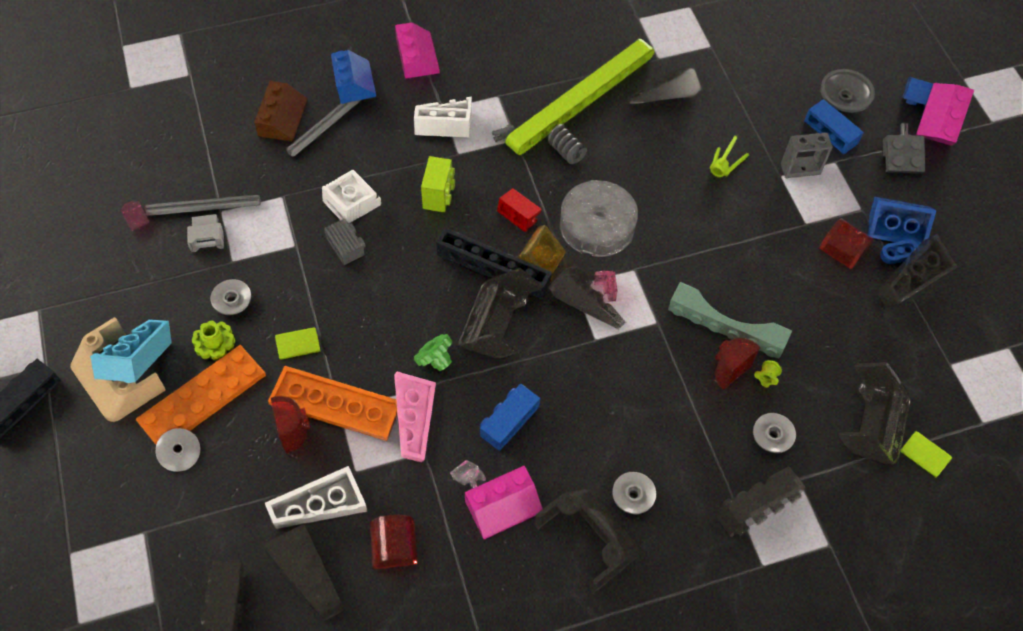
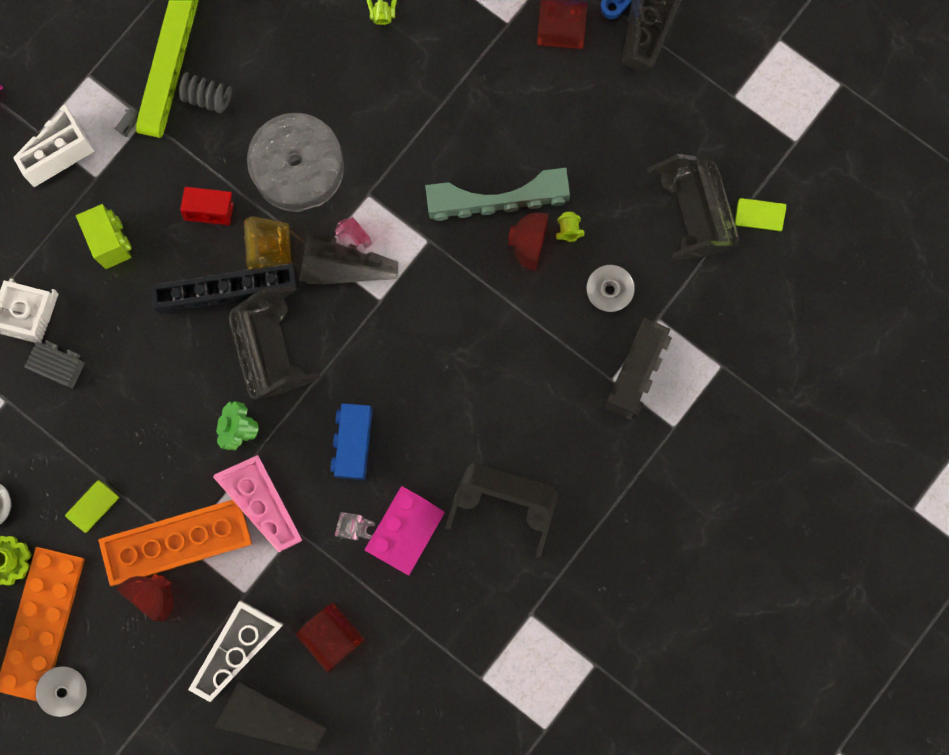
camera: 25 degrees left, 20 degrees up
(634, 483) = (517, 426): light grey dish -> none

